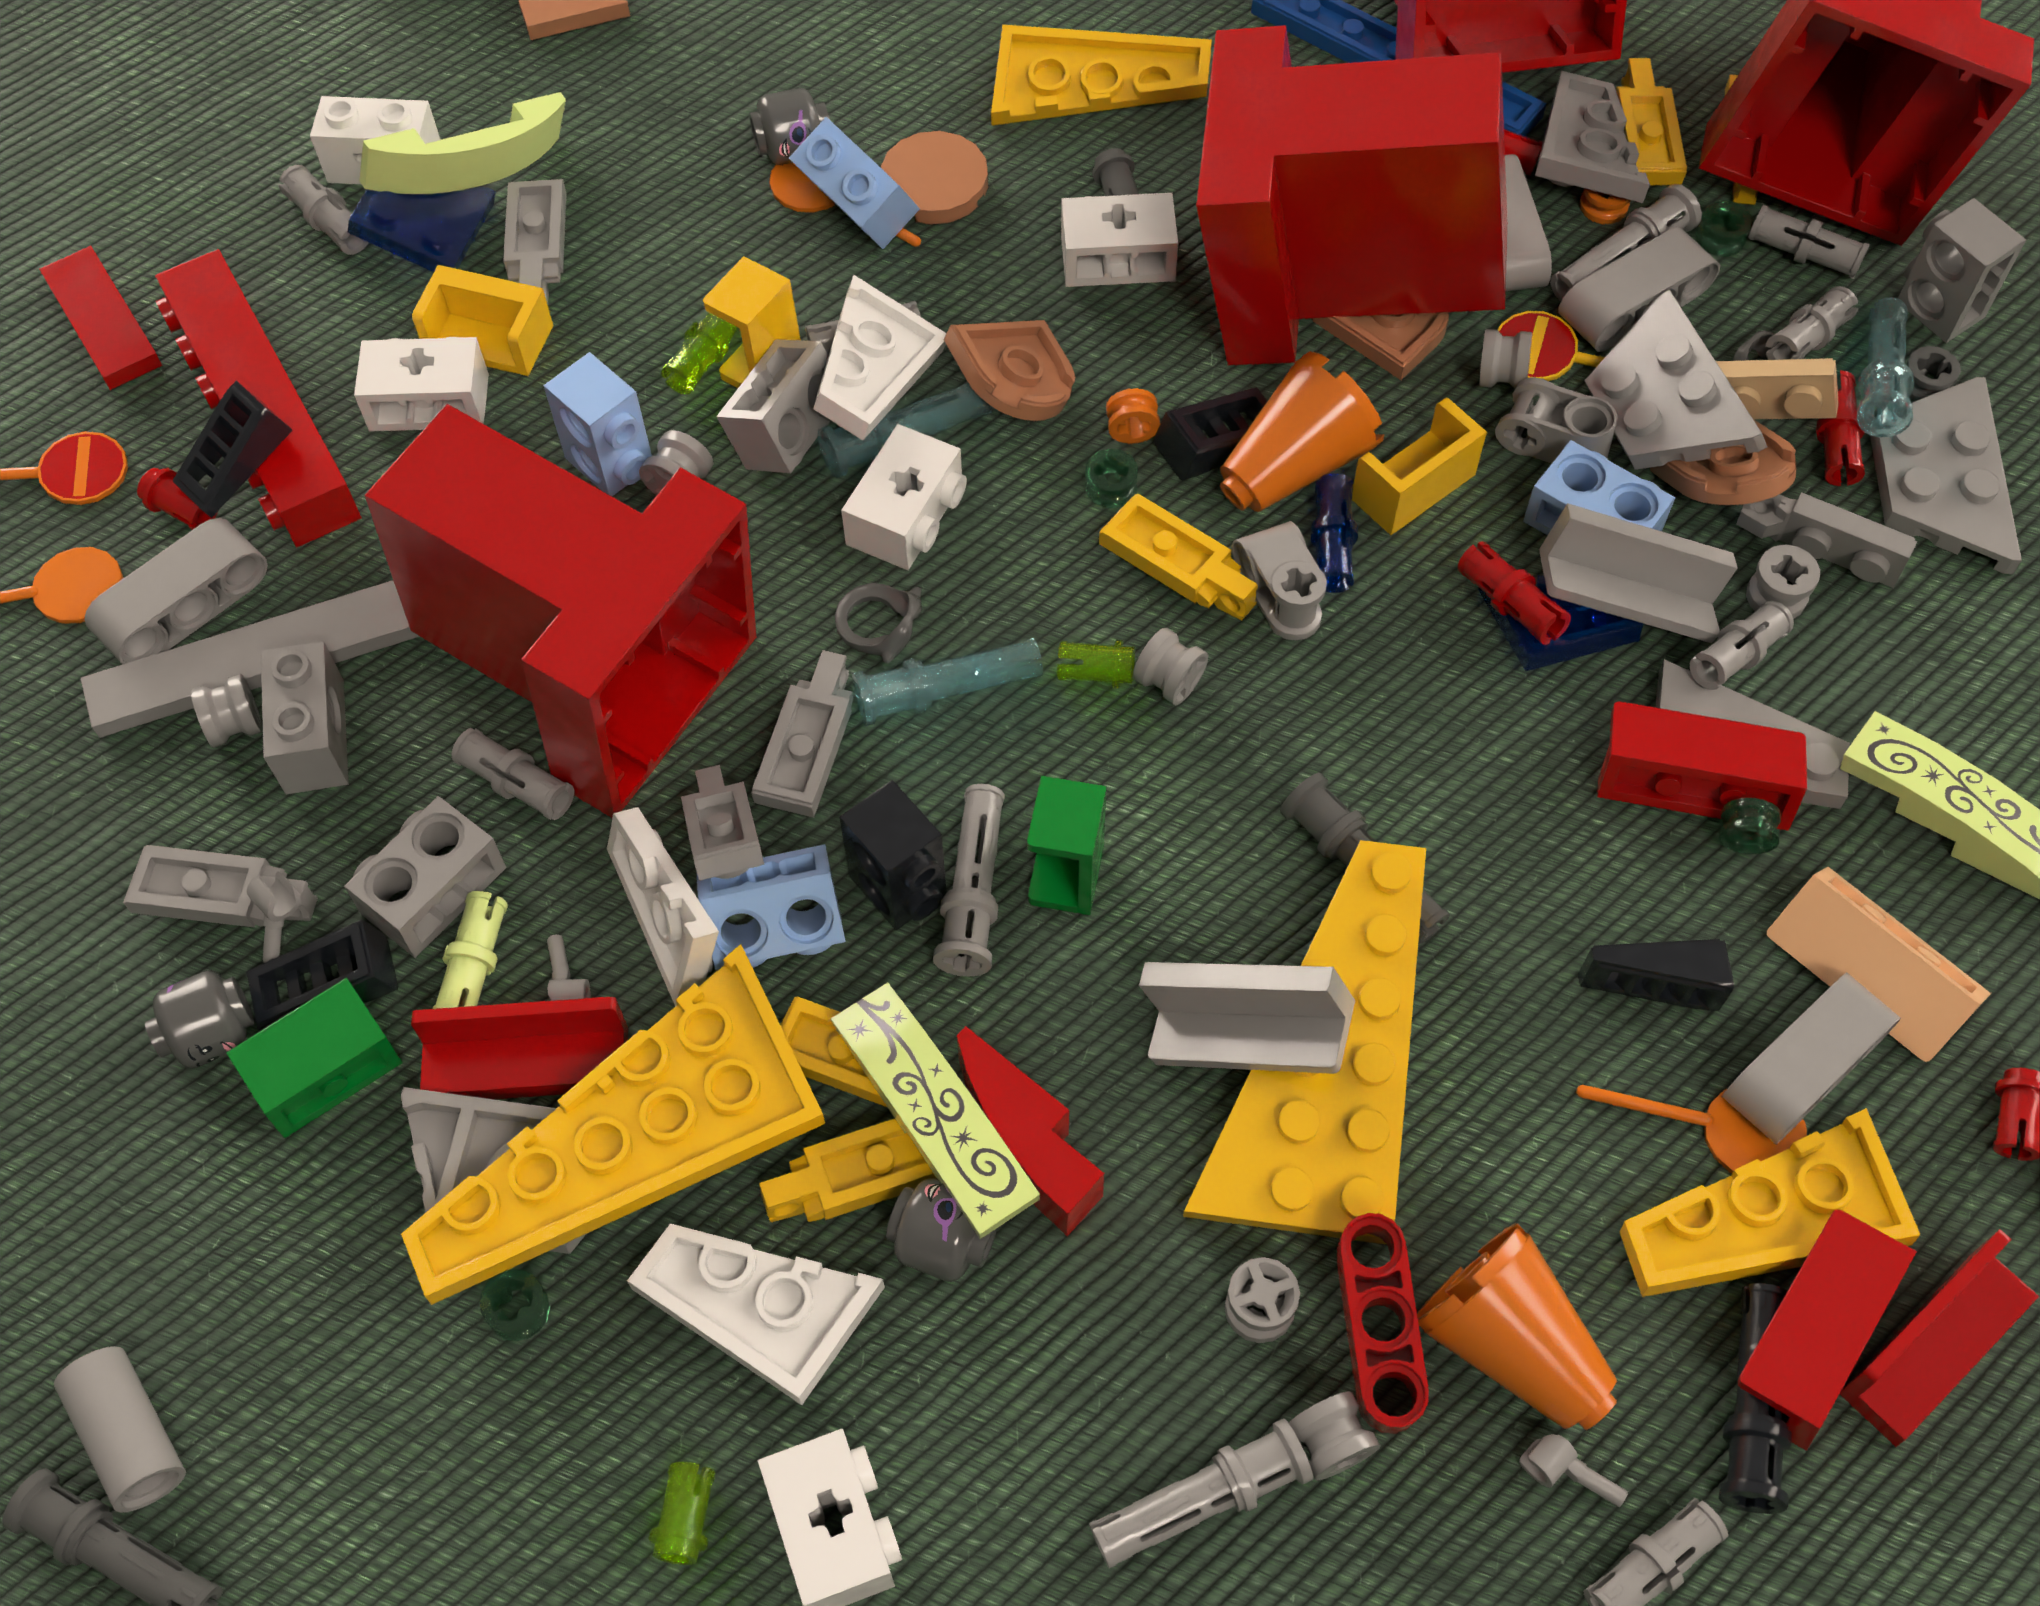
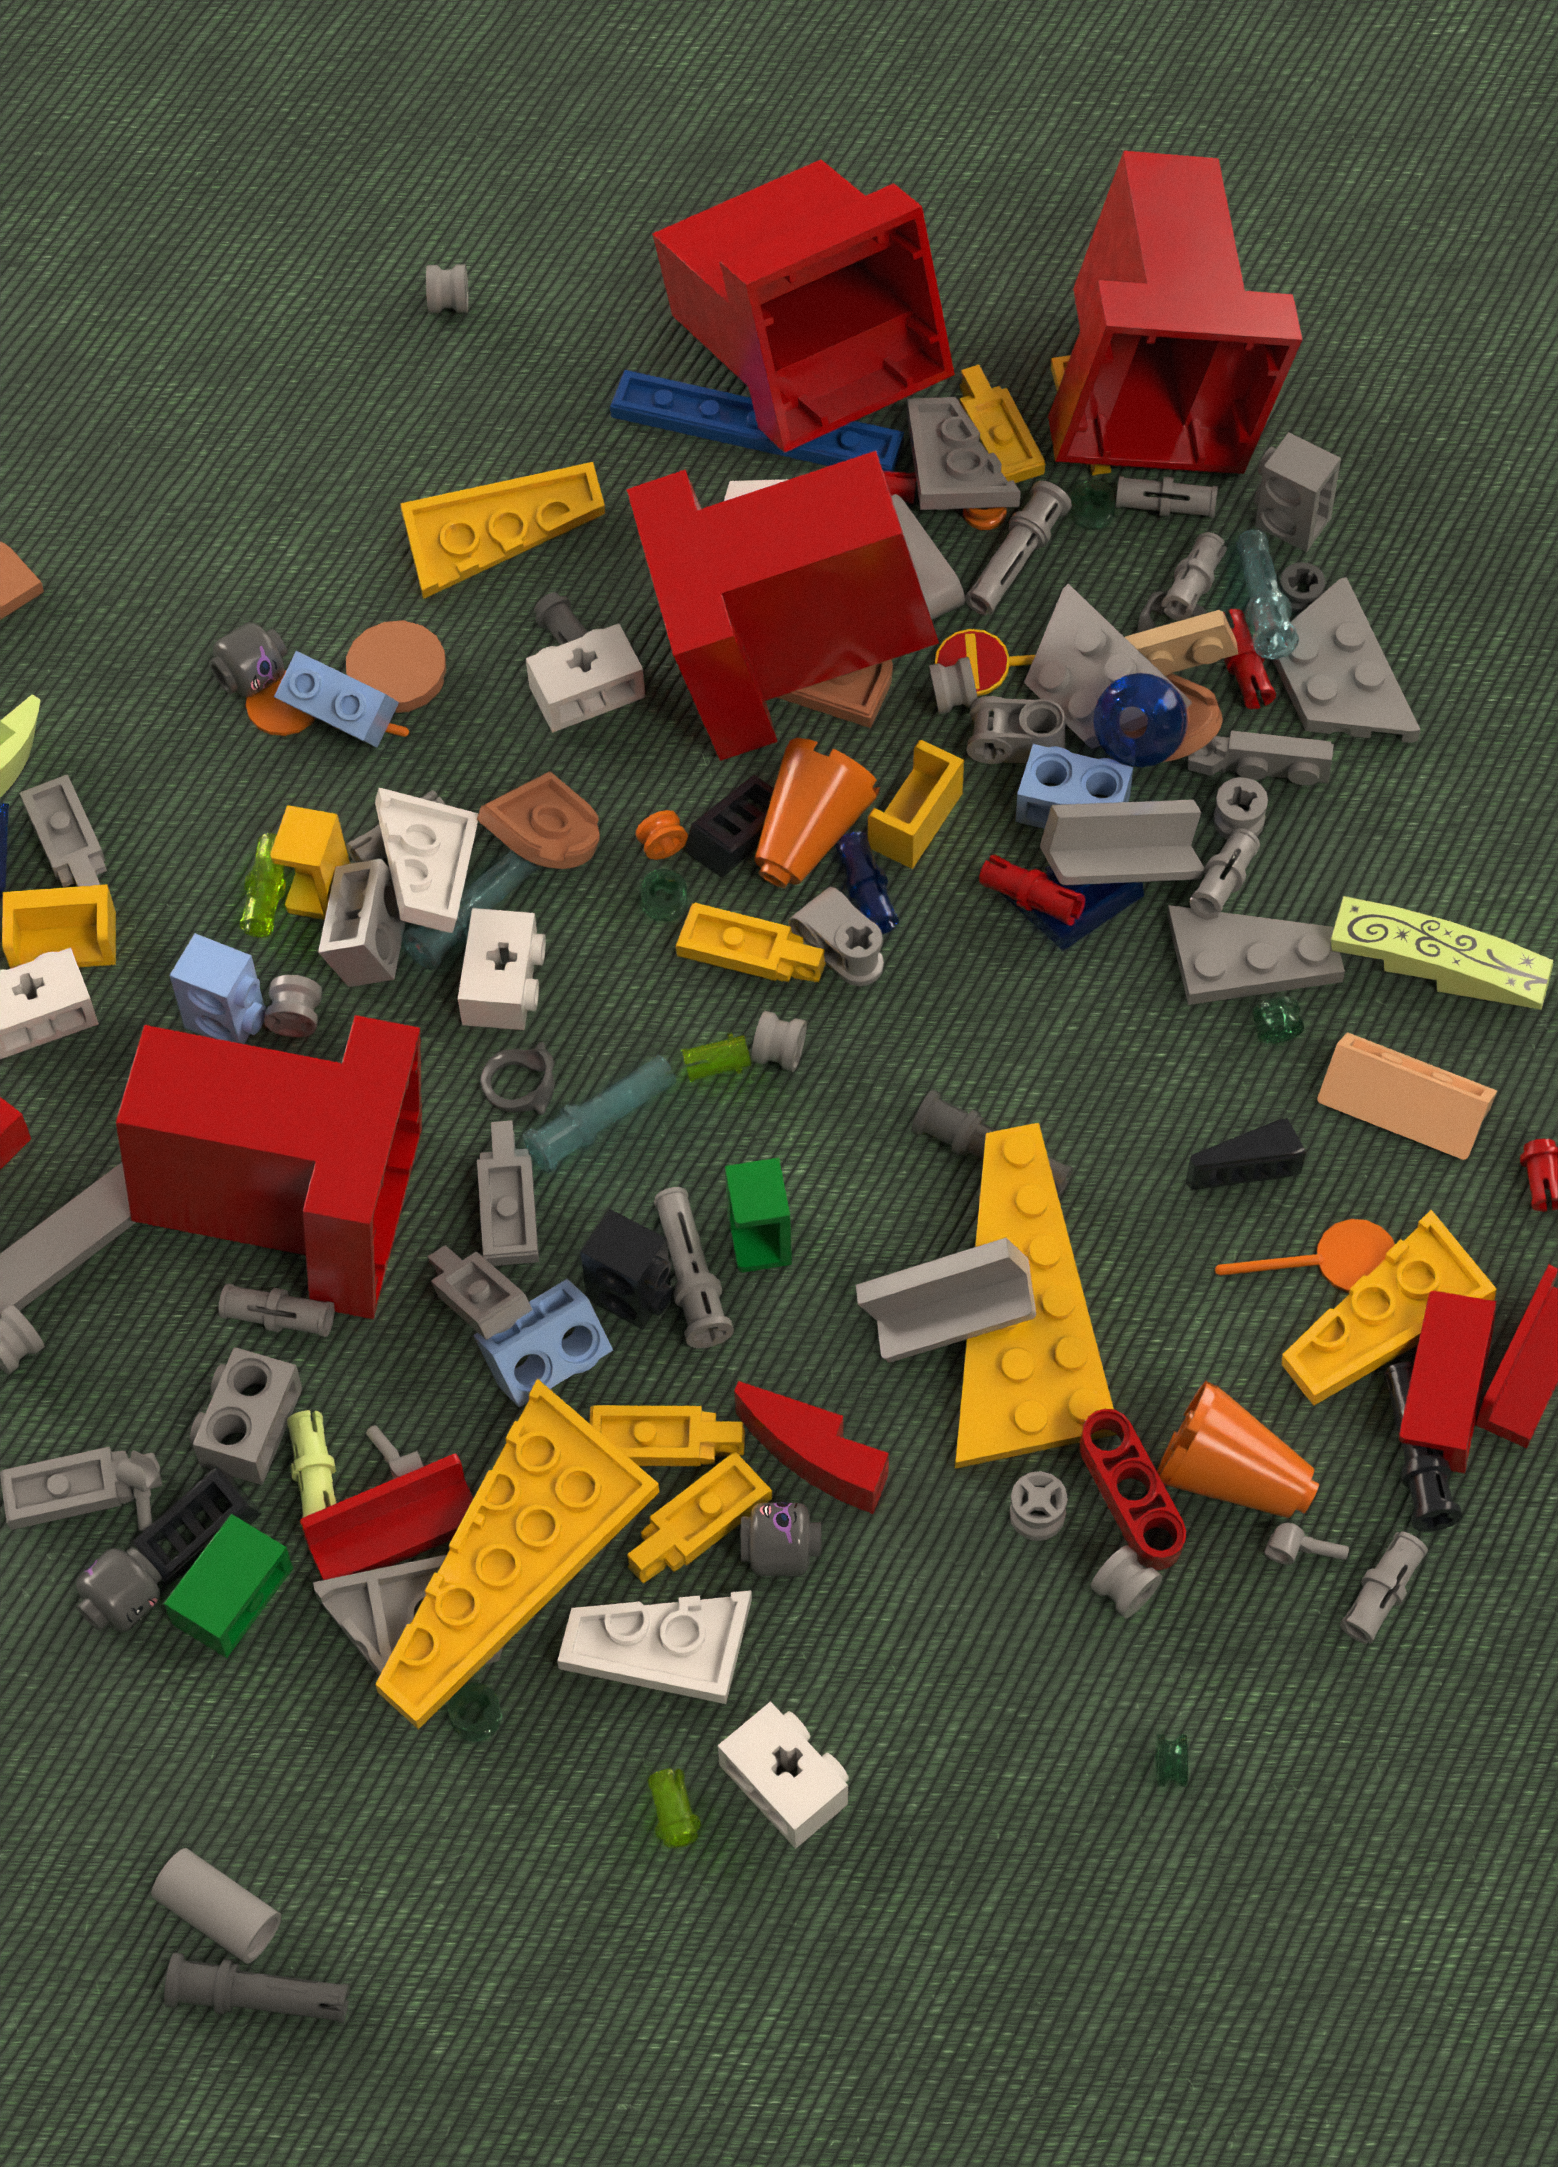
camera: 20 degrees left, 0 degrees up
(304, 717) = (81, 1322): light grey brick -> none
(663, 902) = (456, 1370): white wing -> none
(935, 1110) = (741, 1448): yellowish green slope -> none
(1230, 1482) = (1064, 1640): light grey pin -> none
(1618, 295) = (1030, 593): light grey beam -> none
(1700, 762) = (1223, 981): red panel -> none
(1729, 458) = (1164, 713): none -> clear blue piece
(1810, 1058) = (1379, 1185): light grey beam -> none

